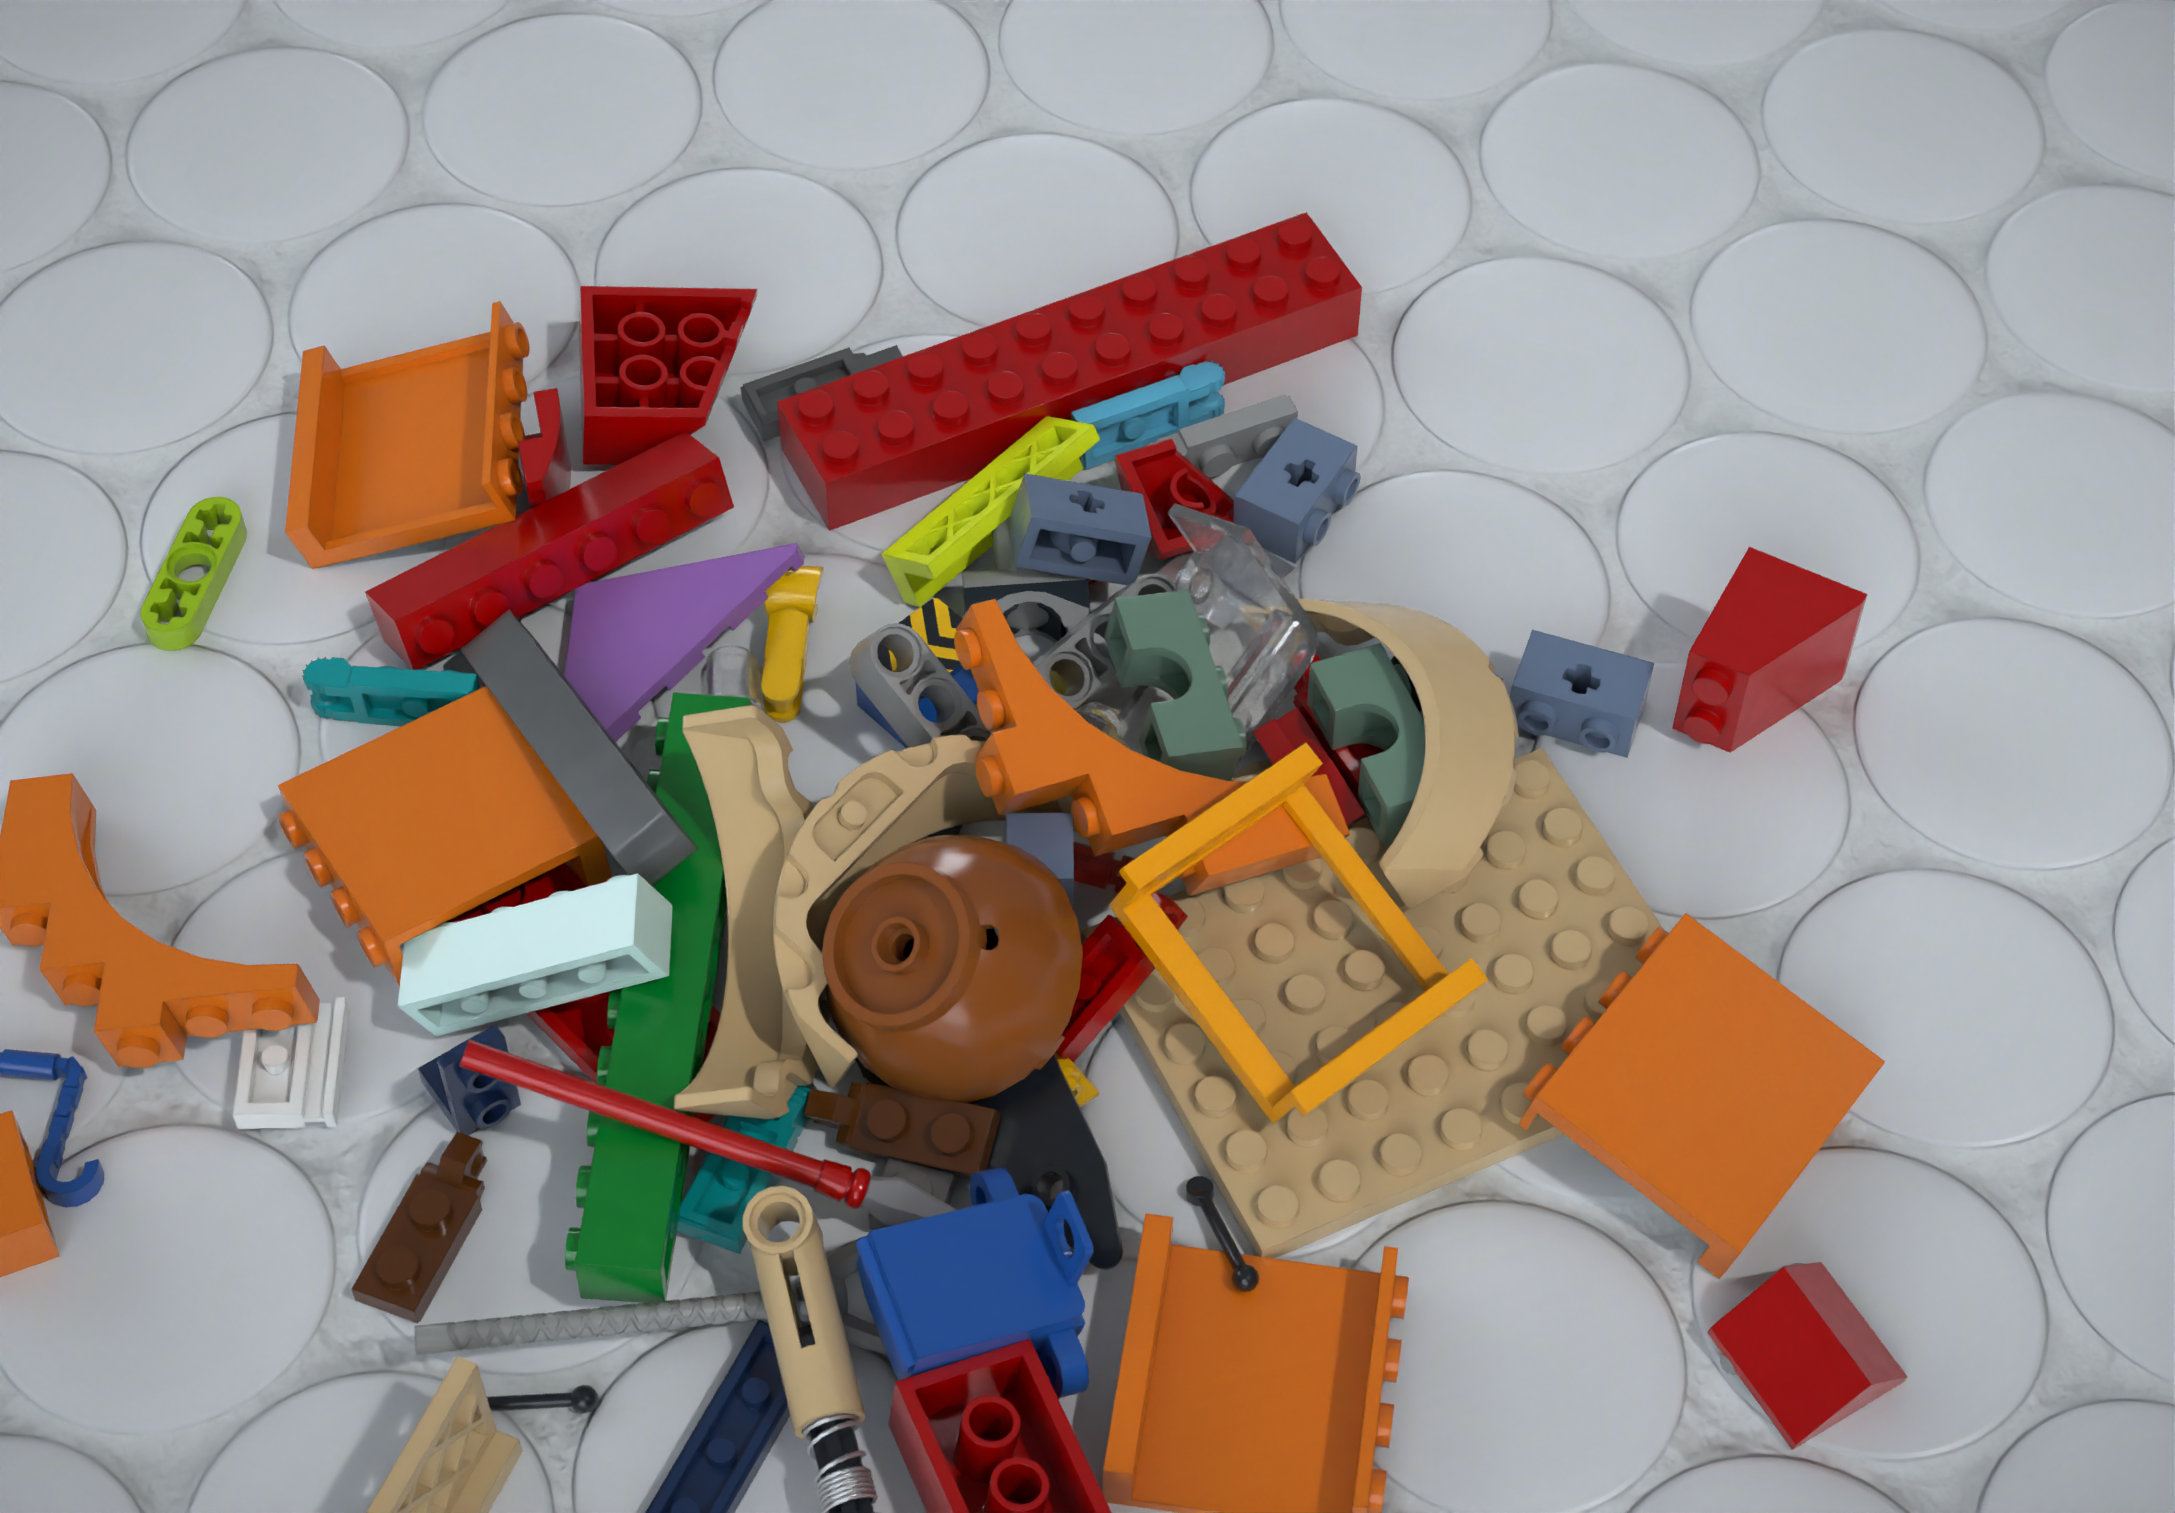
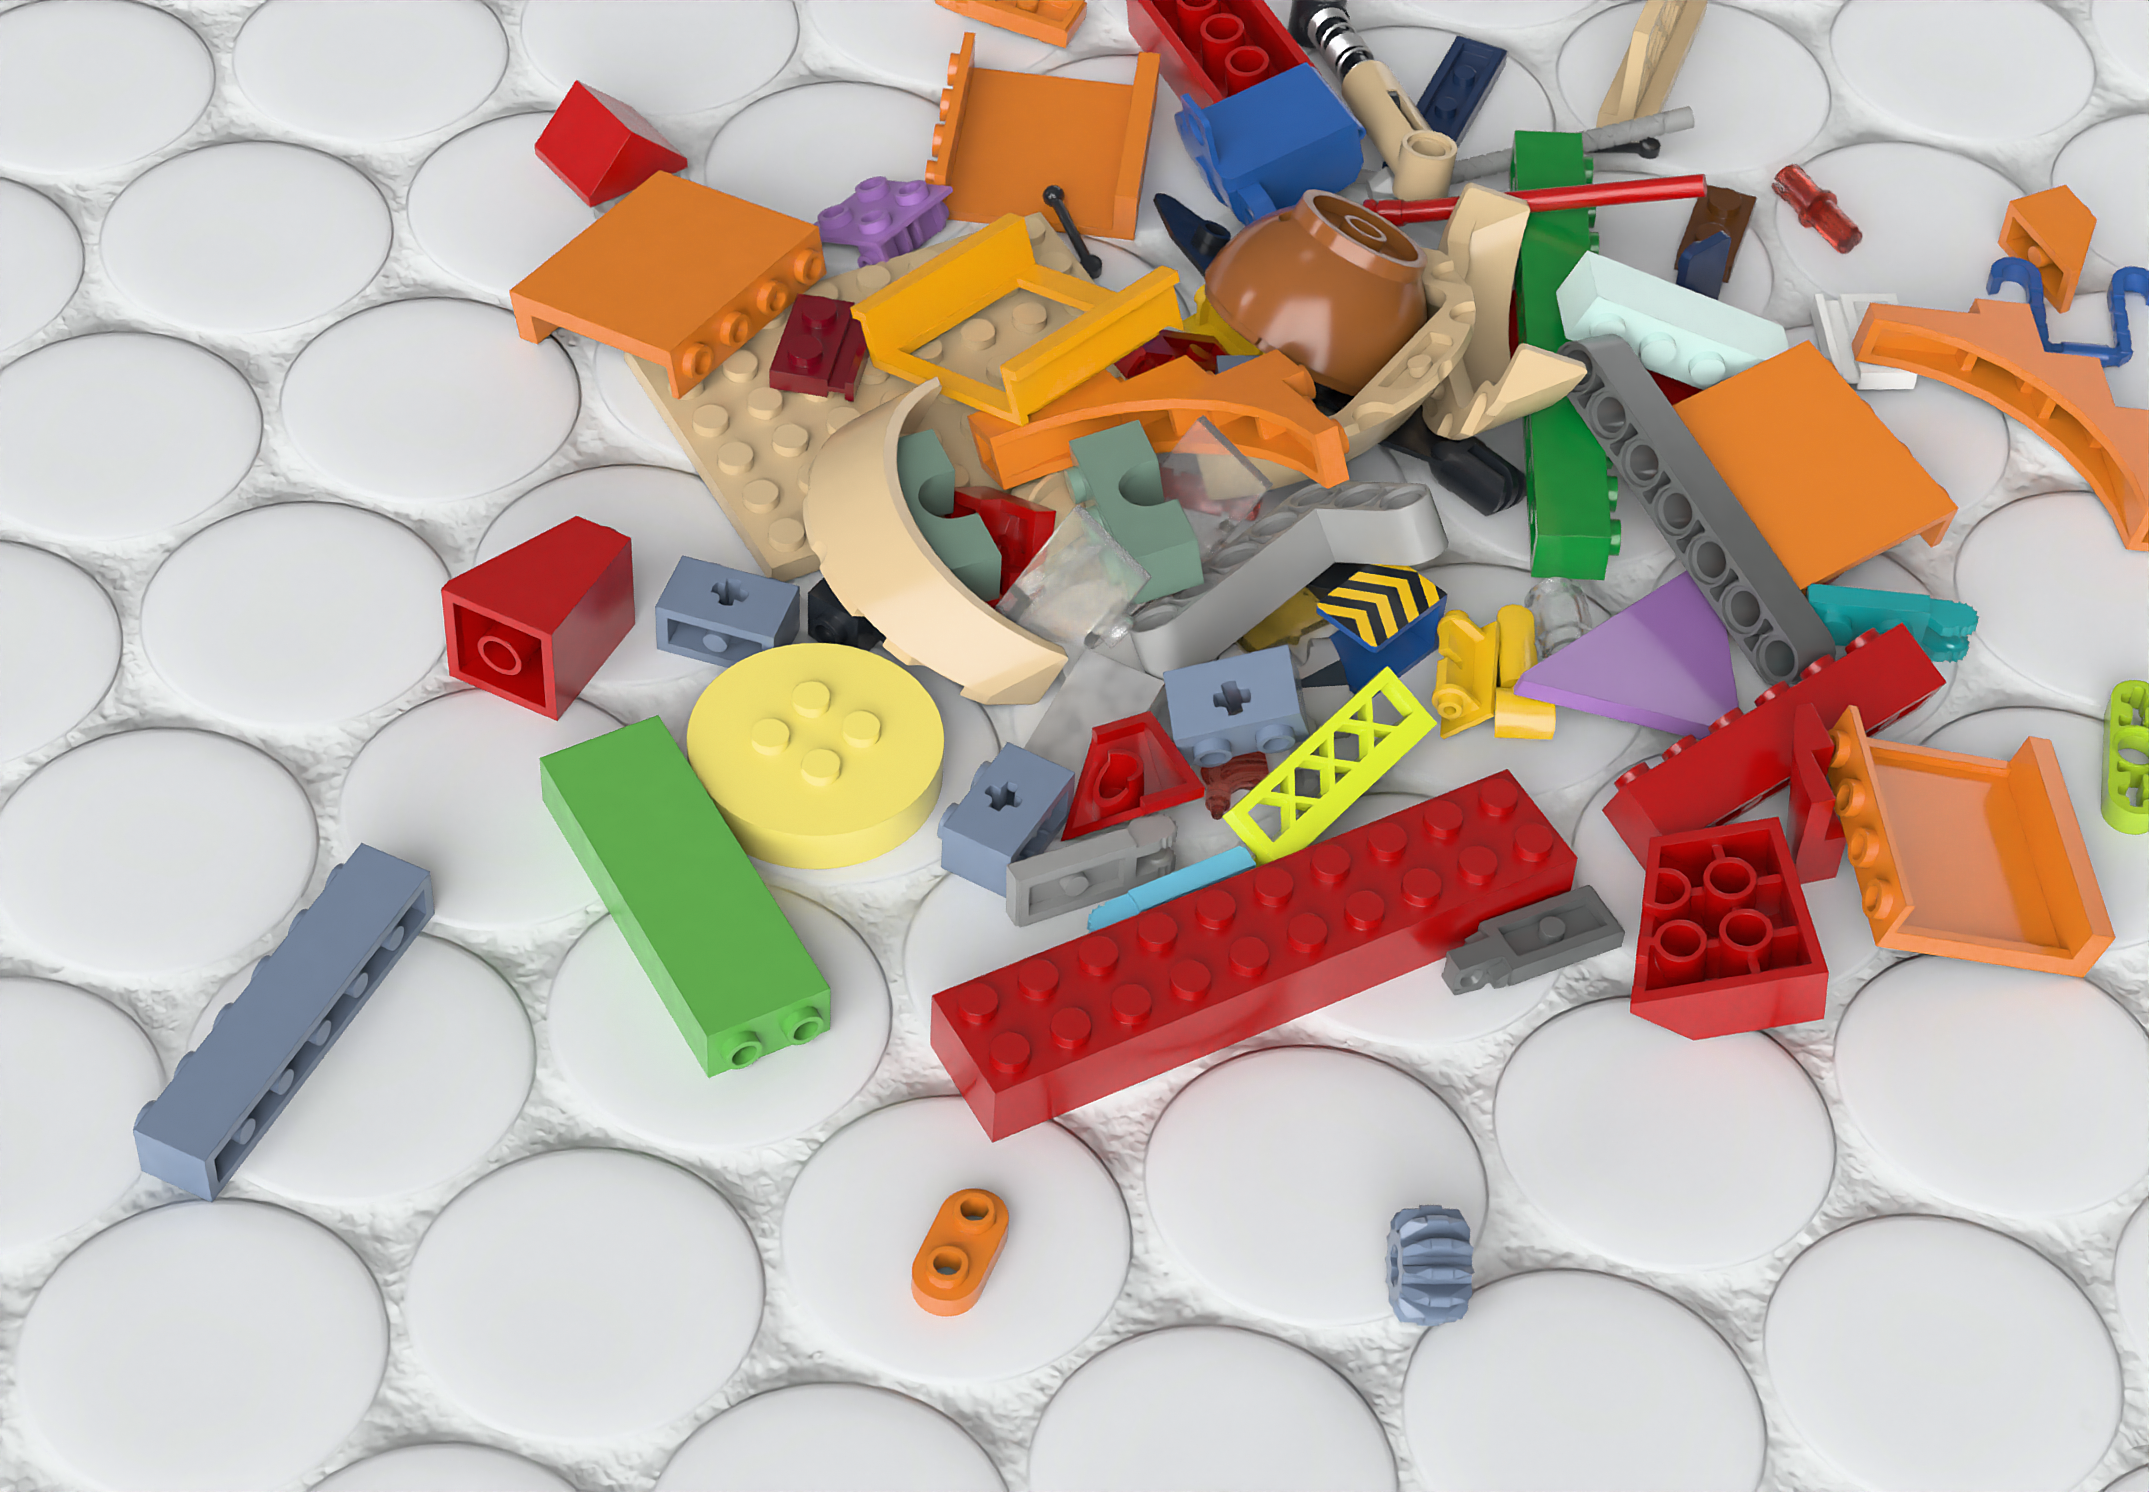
camera: 175 degrees right, 5 degrees down
(278, 1277) = (1817, 208): none -> clear red axle
(835, 630) = (1466, 673): none -> yellow hinge
(960, 118) = (1429, 1265): none -> sand blue gear
(1328, 170) = (964, 1247): none -> orange plate
(1464, 1239) = (886, 218): none -> medium lavender hinge
(1483, 549) = (818, 754): none -> light yellow brick
(1518, 1007) = (820, 349): none -> dark red plate
(1590, 429) = (685, 896): none -> bright green brick
(1906, 326) = (283, 1022): none -> sand blue brick

